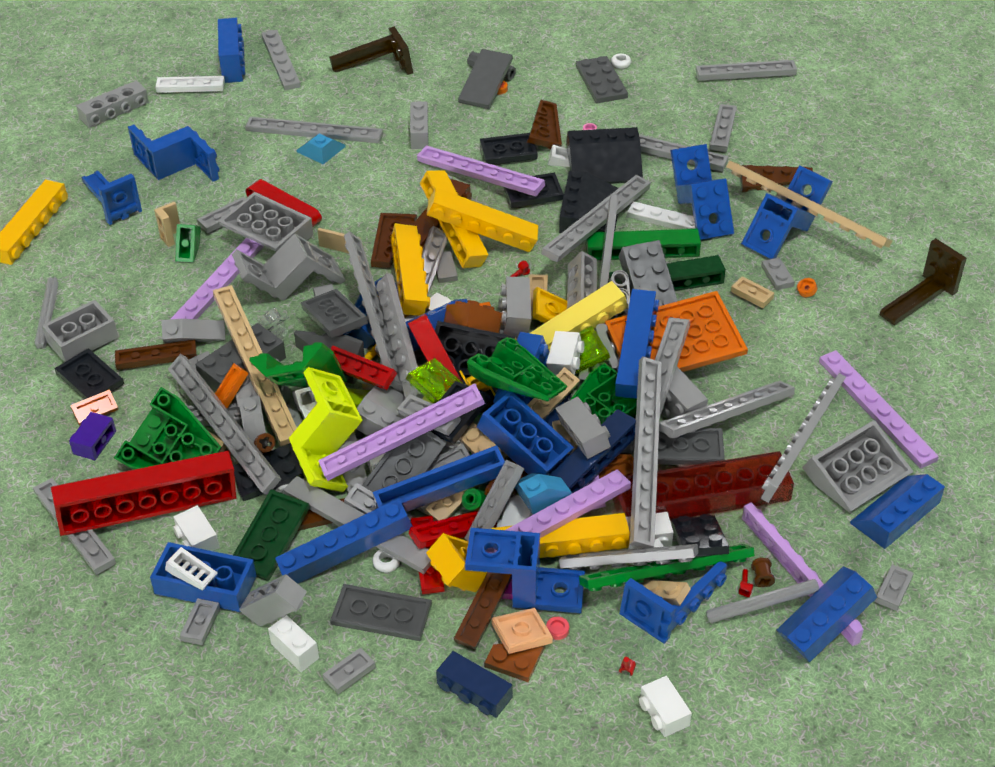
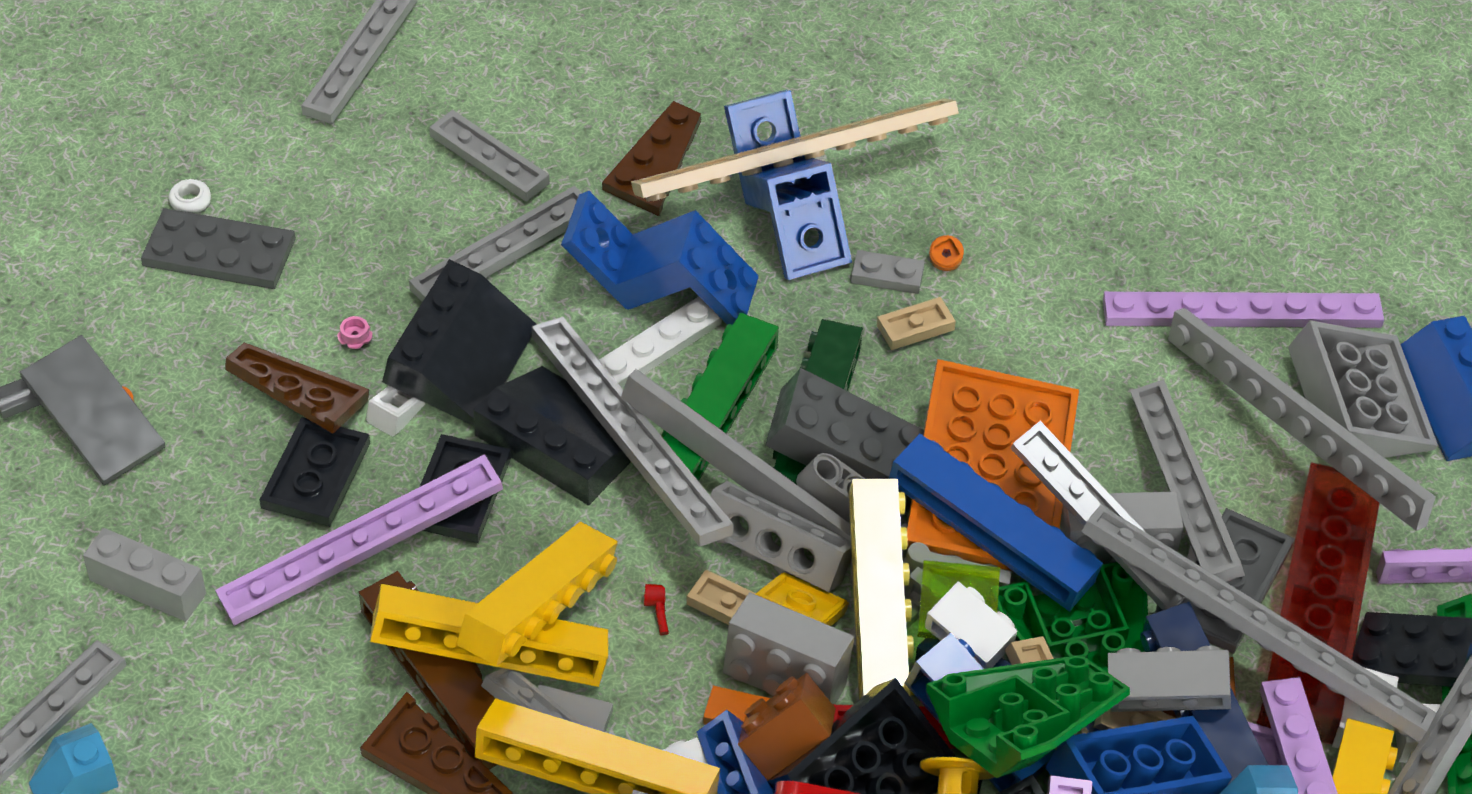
camera: 65 degrees left, 5 degrees up
(942, 273) = (1030, 83): dark brown bracket -> none

